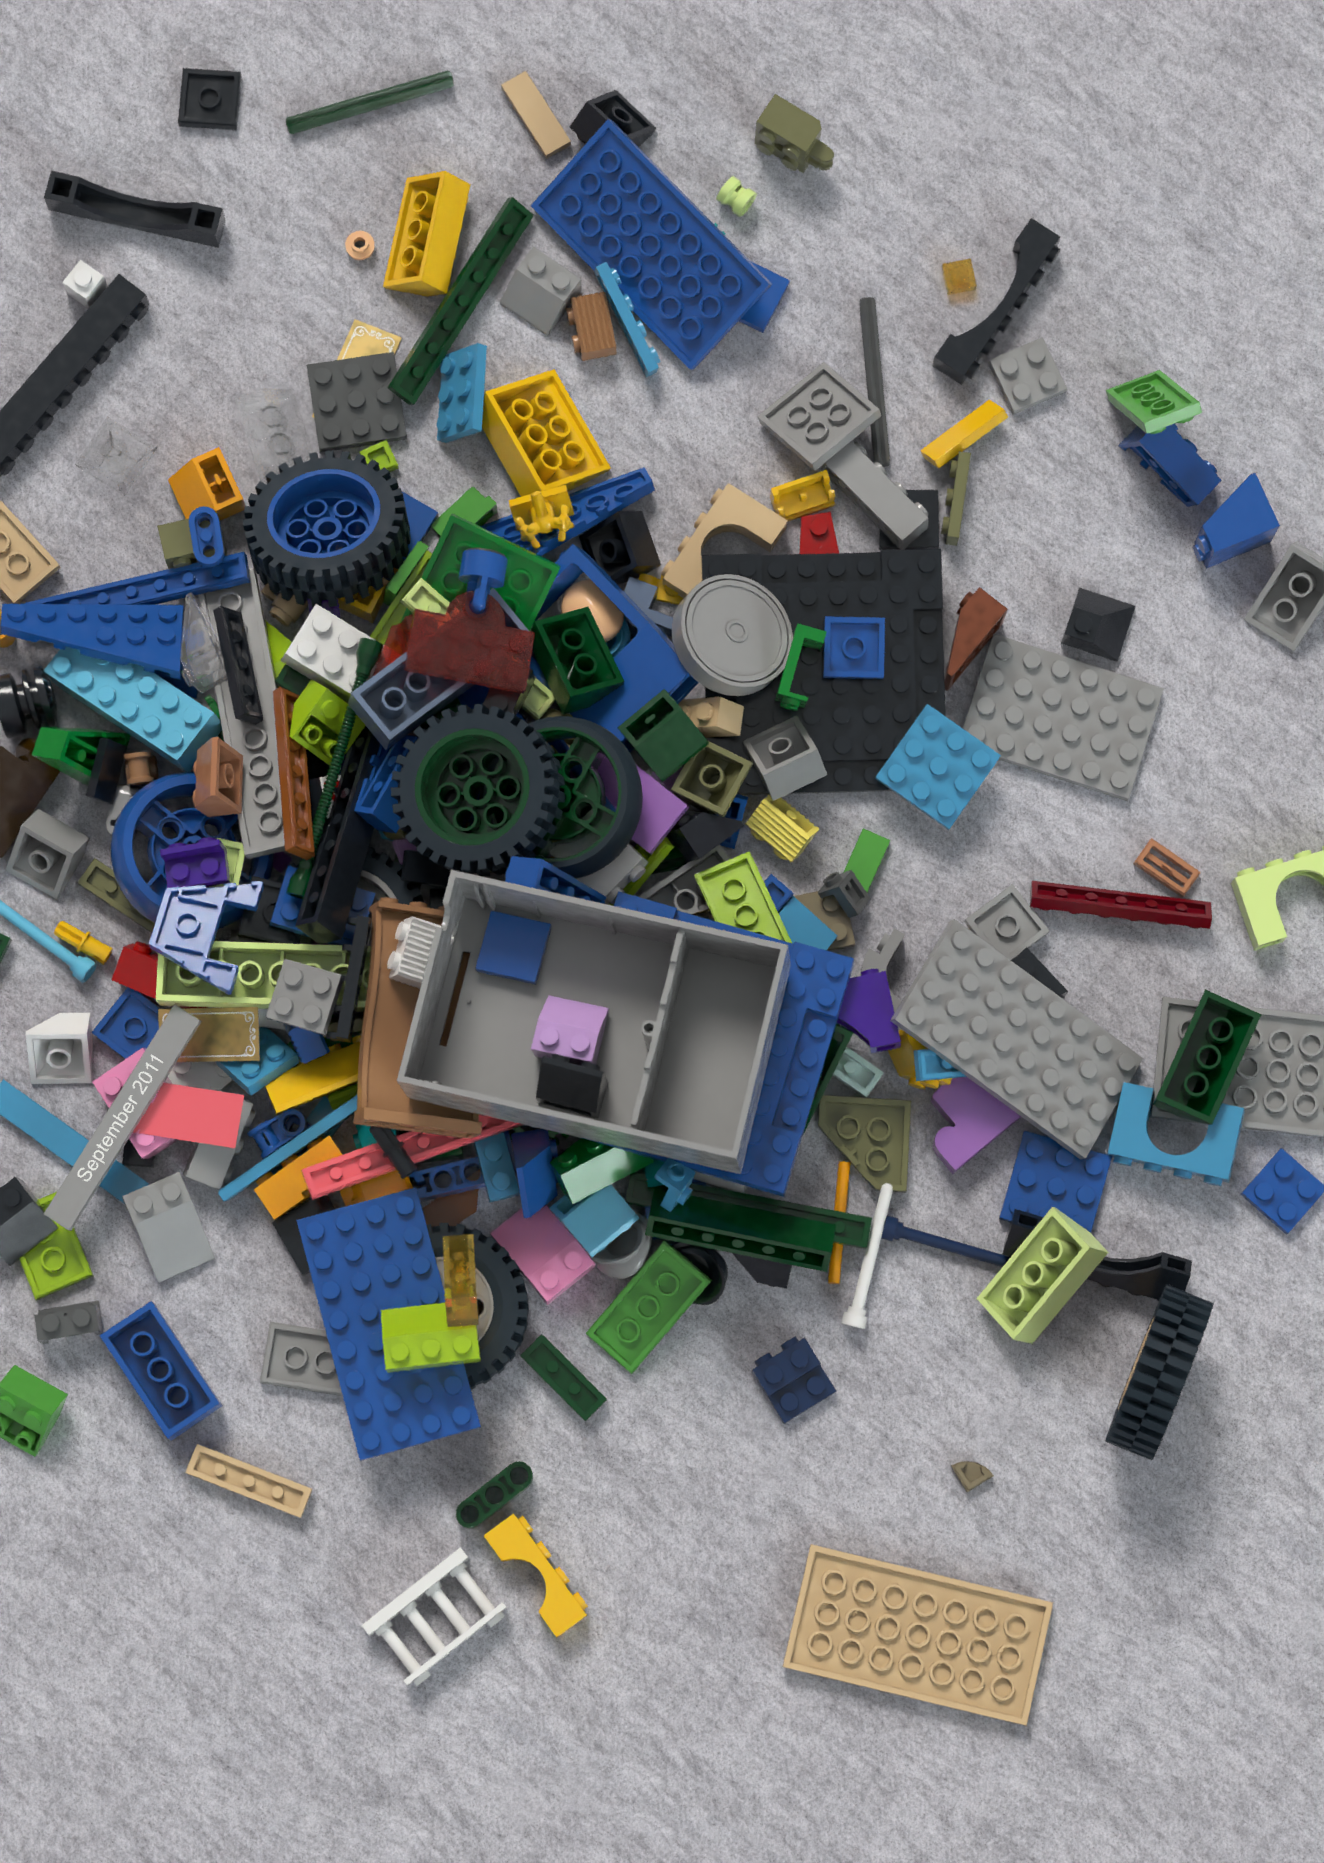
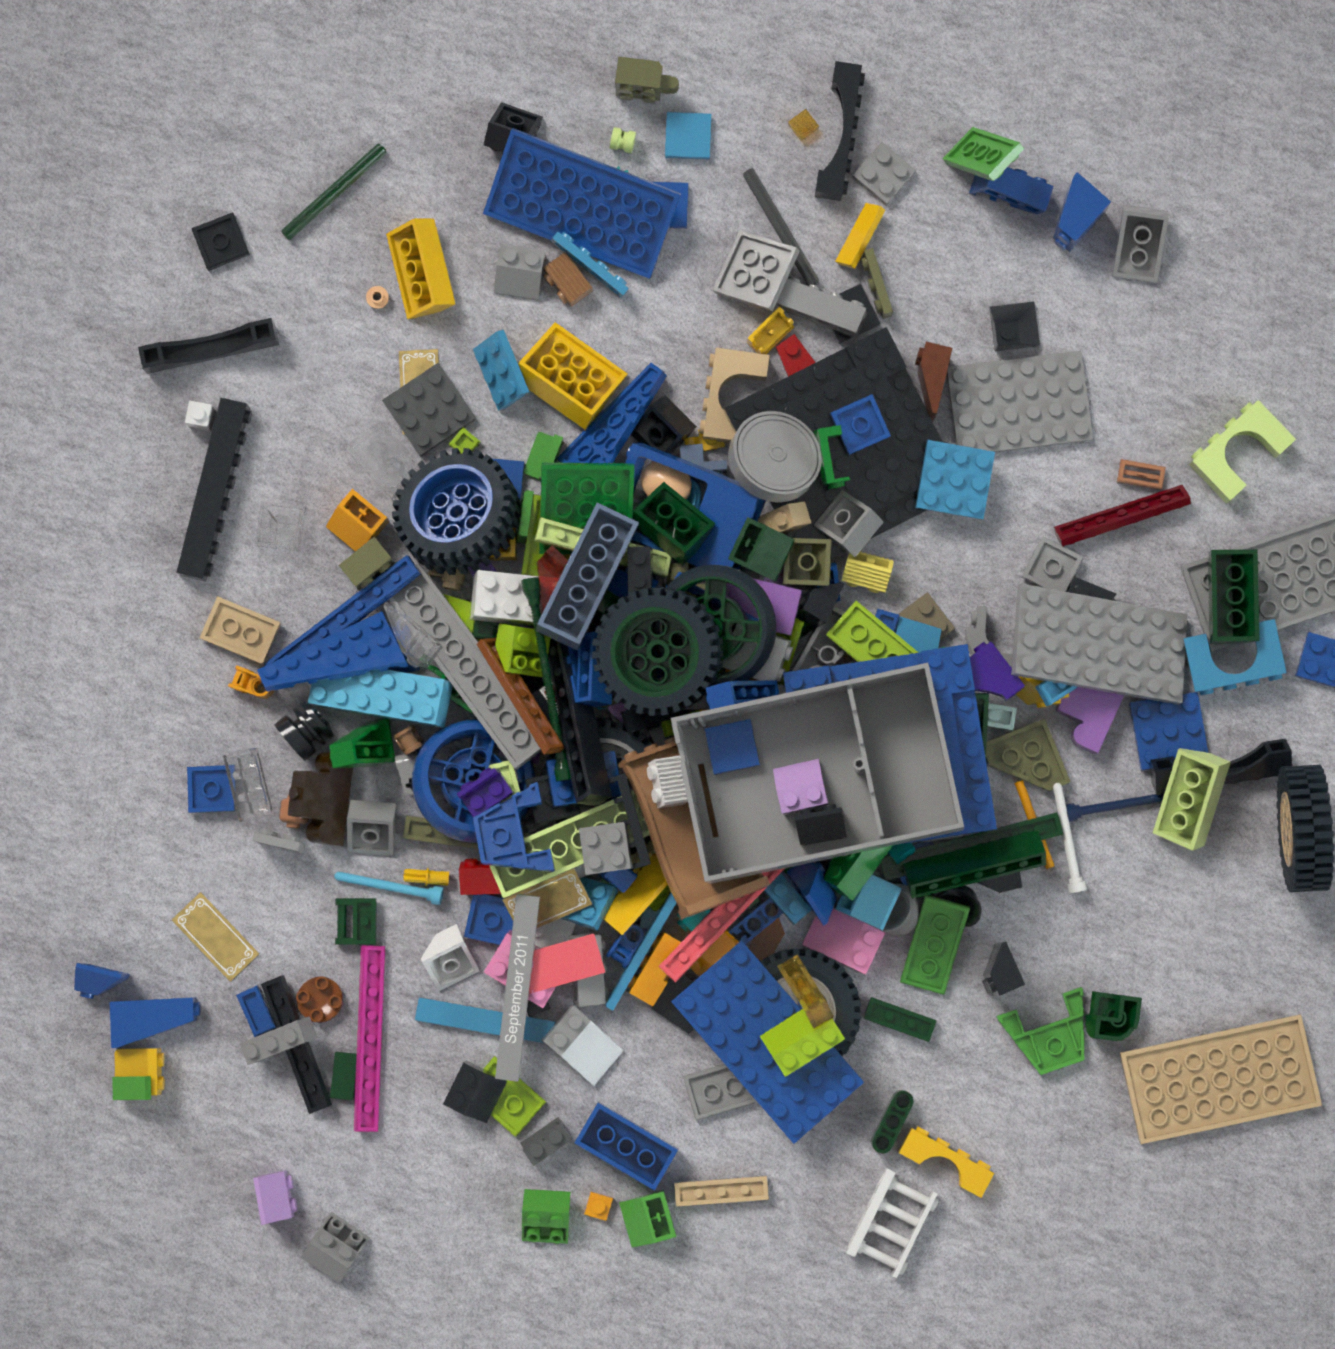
camera: 20 degrees left, 5 degrees up
(93, 1429) = (598, 1206): none -> light orange plate
(106, 771) = (386, 752): black tile -> none
(145, 1471) = (647, 1219): none -> bright green slope
(206, 537) = (377, 558): blue plate -> none
(218, 779) = (470, 725): nougat slope -> none
(238, 665) = (444, 637): black tile -> none
(394, 1151) = (716, 923): black axle -> none
(460, 301) = (467, 305): dark green plate -> none
(472, 636) = (599, 544): clear red plate -> none
(536, 114) = (454, 146): tan tile -> none
(542, 513) = (598, 429): yellow piece -> none
(677, 1179) = (918, 852): dark azure bracket -> none
(710, 1375) = (1001, 971): none -> black slope
(736, 1495) = (1054, 1043): none -> bright green wing
(793, 1379) = (1054, 946): dark blue plate -> none
(816, 227) = (688, 135): none -> dark azure tile
(822, 1494) = (1112, 1016): none -> dark green brick
(846, 890) = (932, 594): dark grey bracket -> none
(867, 857) = (933, 568): bright green tile -> none
(971, 1474) = (1204, 953): dark tan tile -> none

